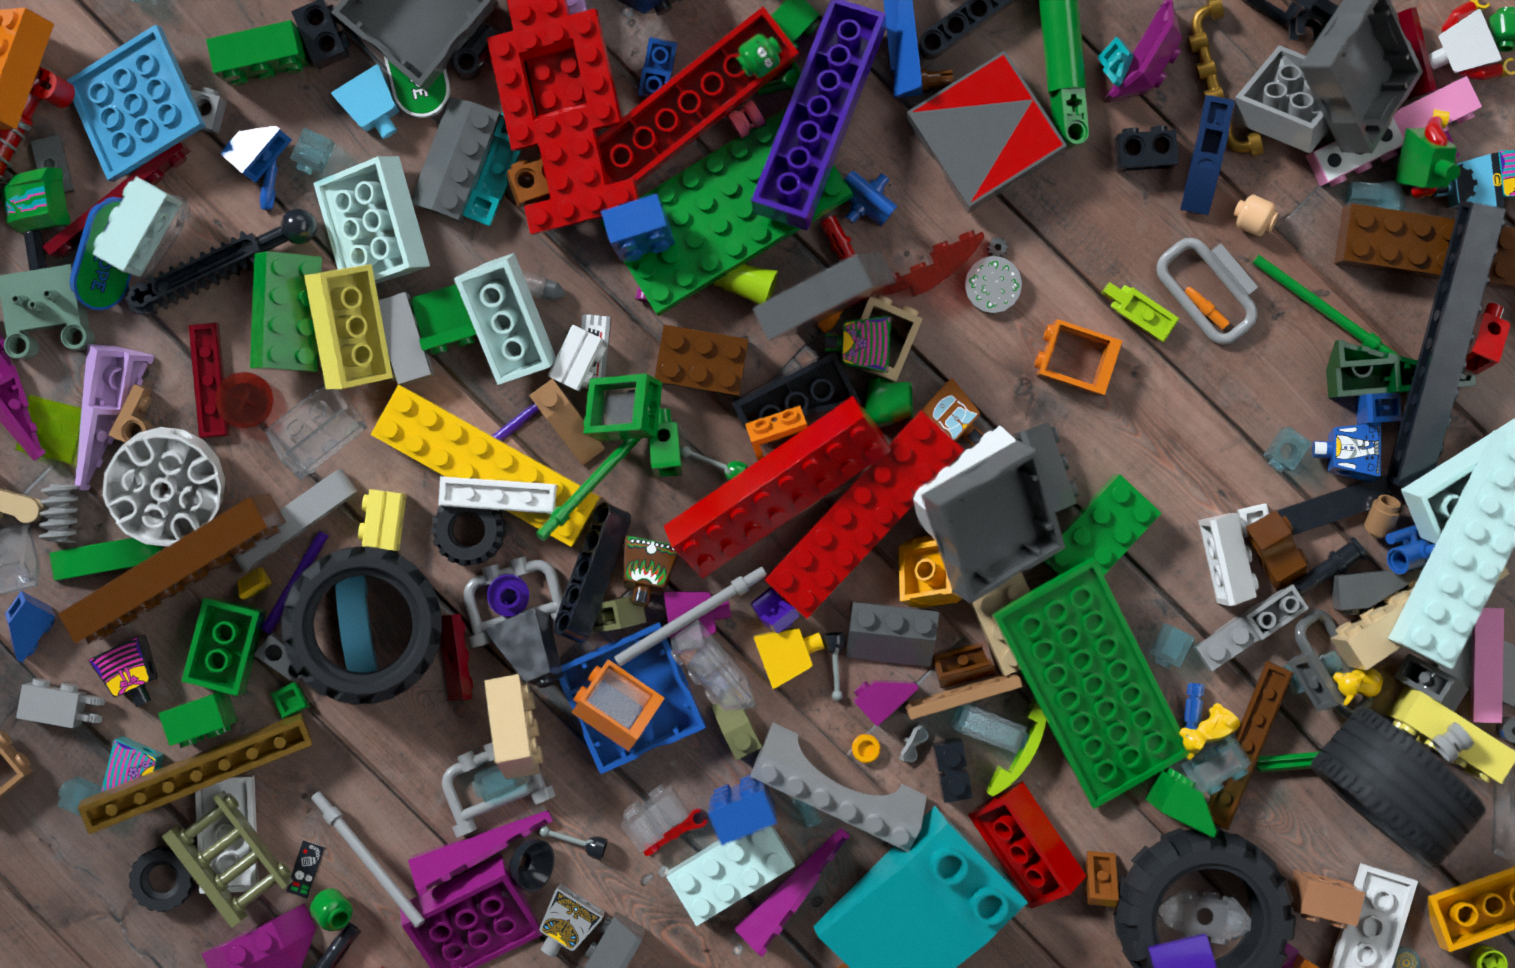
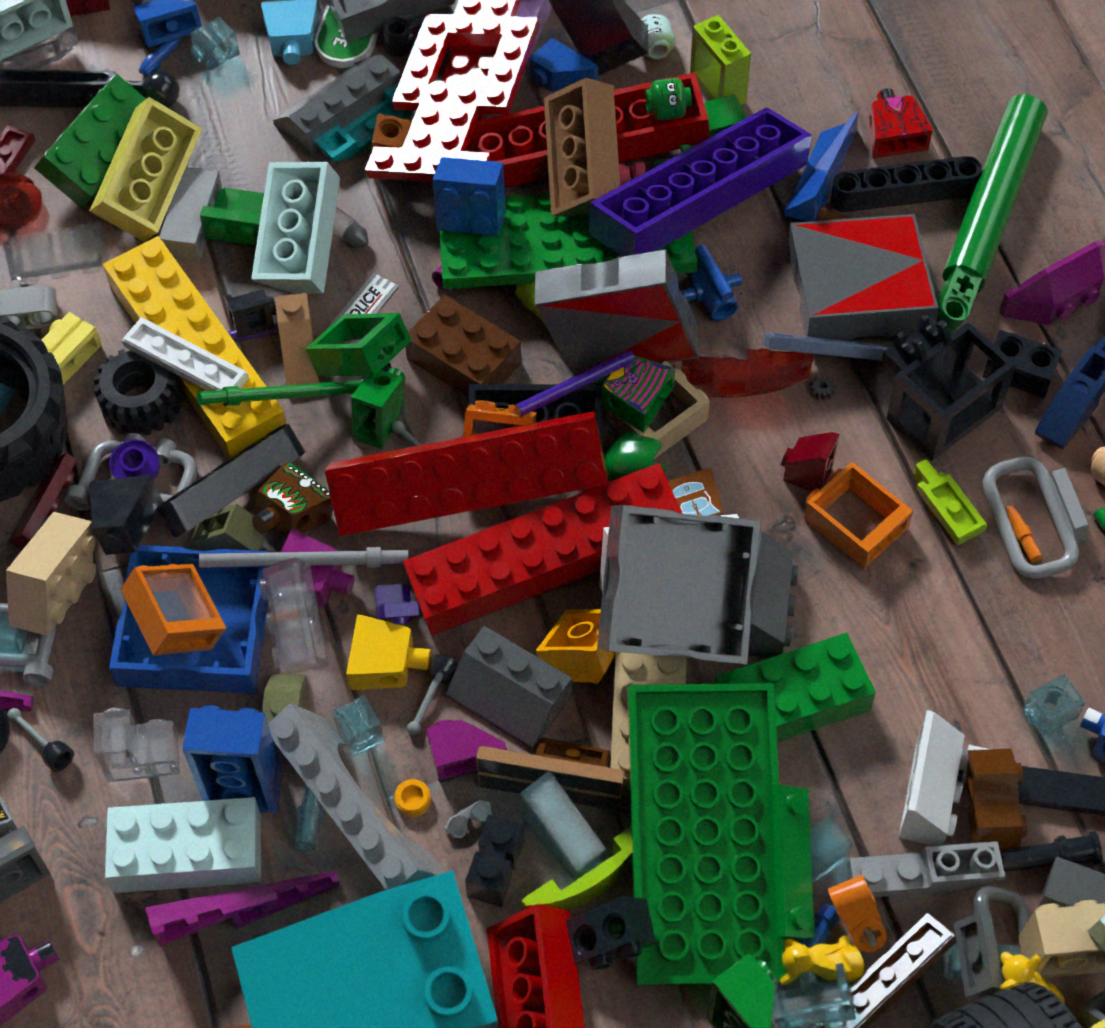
camera: 30 degrees right, 30 degrees down
(372, 219) = (236, 112): light aqua slope -> none
(513, 411) = (251, 312): none -> black brick
(577, 358) = (344, 293): white brick -> none
(628, 28) = (559, 66): none -> blue slope
(674, 832) = (116, 783): red piece -> none
(709, 136) = (581, 146): none -> medium nougat slope
(801, 719) = (358, 725): none -> clear light blue brick
(823, 375) = (574, 383): none -> dark purple bar
(991, 215) = (824, 346): none -> sand blue tile
(993, 284) = (800, 412): light grey tile -> none
(1023, 331) = (810, 460): none -> dark red slope
(1061, 787) = (611, 932): none -> black brick
(1099, 213) = (935, 392): none -> black piece
(1116, 60) = (1026, 268): teal slope -> none
(1162, 676) = (792, 862): none -> green plate
(1220, 686) = (859, 910): none -> orange piece

